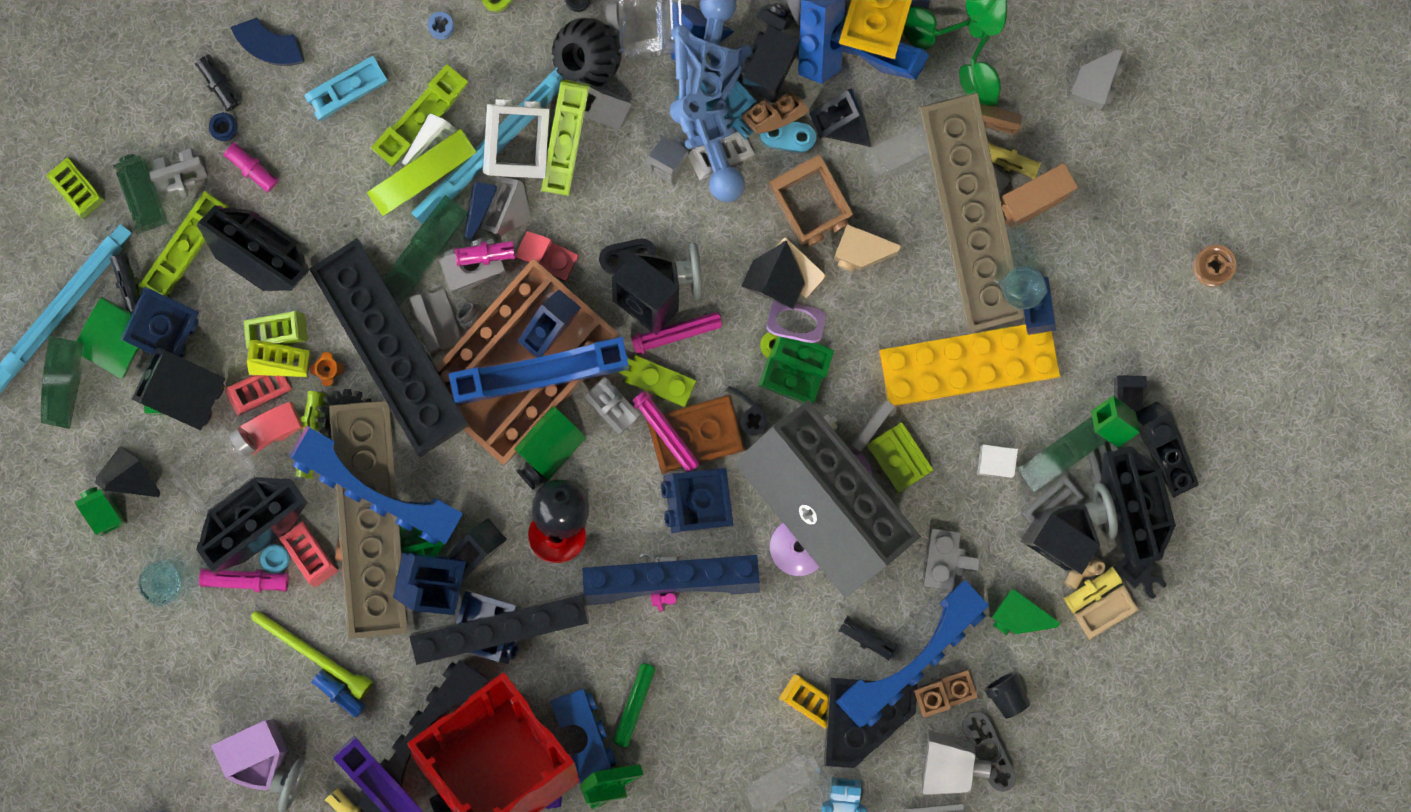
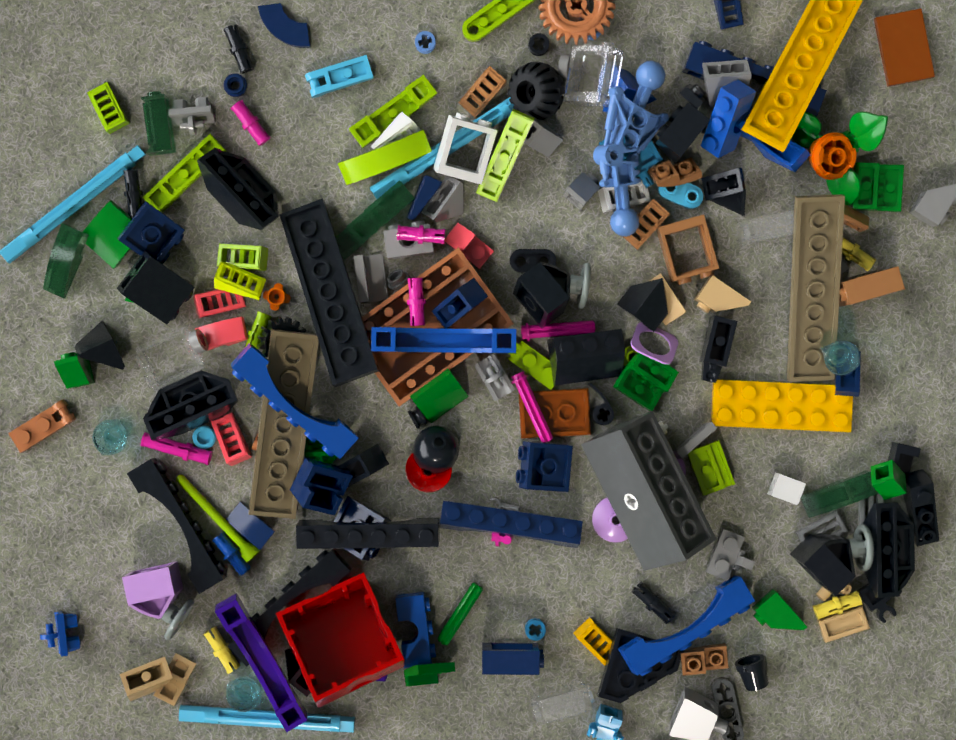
camera: 10 degrees right, 5 degrees up
(73, 590) = (41, 426): none -> nougat plate
(310, 719) = (205, 569): none -> black arch
(354, 653) = (250, 526): none -> dark blue slope
(496, 333) = (416, 301): none -> dark pink pin
(531, 74) = (488, 97): none -> medium nougat slope
(708, 742) = (512, 658): none -> dark blue window
(718, 356) = (586, 356): none -> black slope
(732, 712) = (534, 636): none -> dark azure bush
(765, 160) = (660, 210): none -> medium nougat slope
(872, 309) = (717, 347): none -> black hinge
(956, 50) = (832, 155): none -> orange cone
(1025, 76) = (879, 187): none -> green slope

